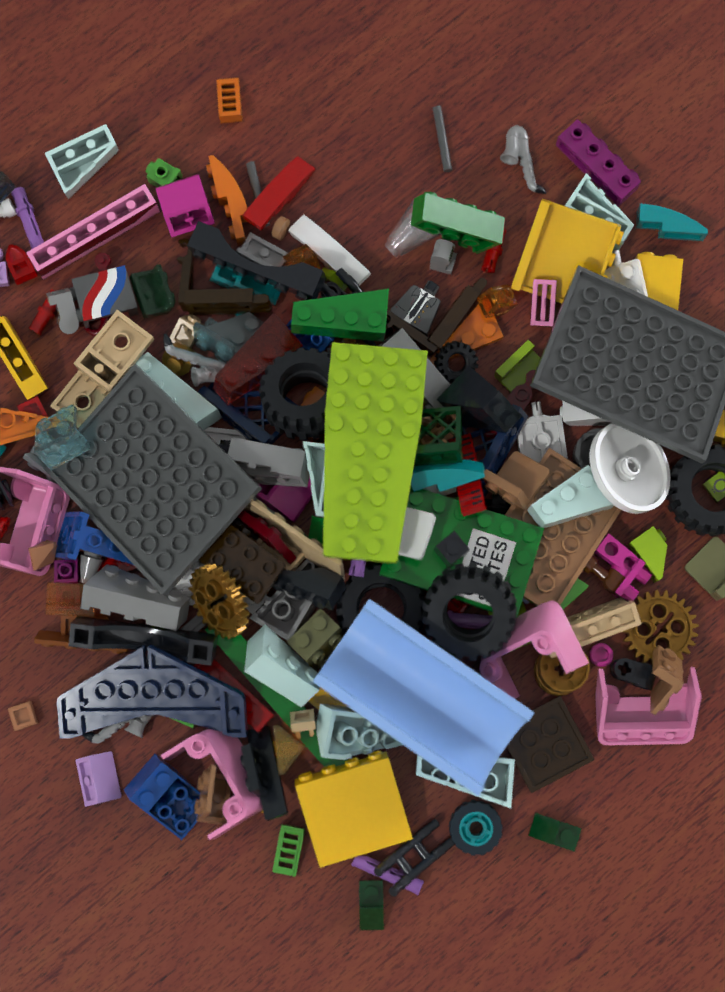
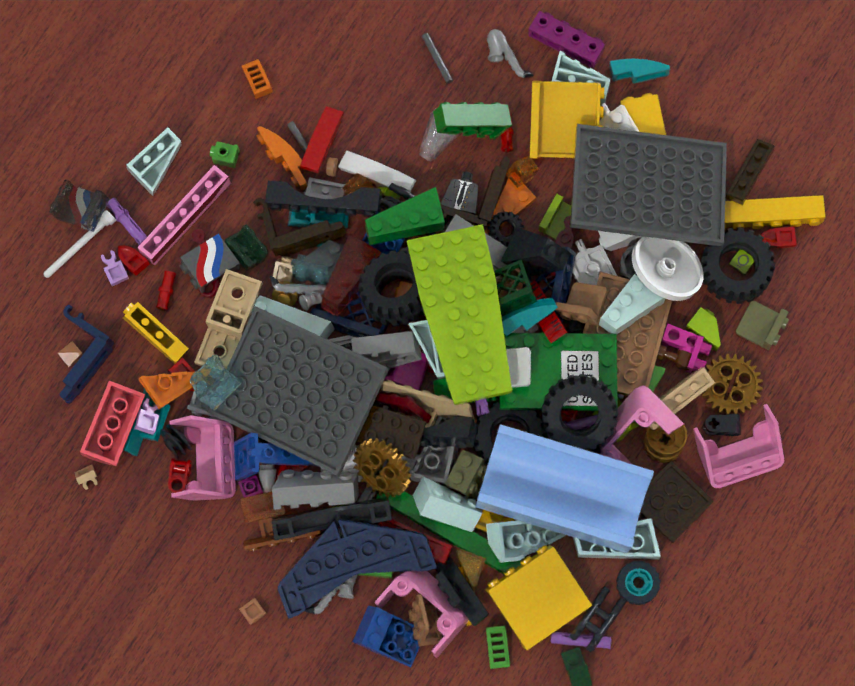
camera: 15 degrees left, 5 degrees down
(42, 554) = (228, 478): nougat slope -> none
(67, 316) = (180, 278): light grey leg -> none
(98, 778) = (328, 640): lavender panel -> none
(184, 205) = (250, 172): dark pink slope -> none
(303, 721) = (476, 541): tan tile -> none
(443, 256) = (468, 150): light grey leg -> none
(451, 549) = (550, 371): black brick -> none
(542, 322) = (563, 177): bright pink tile -> none
(554, 832) = (700, 567): dark green slope -> none
(601, 655) = (692, 420): dark pink tile -> none
(668, 668) = (748, 410): medium nougat bracket -> none

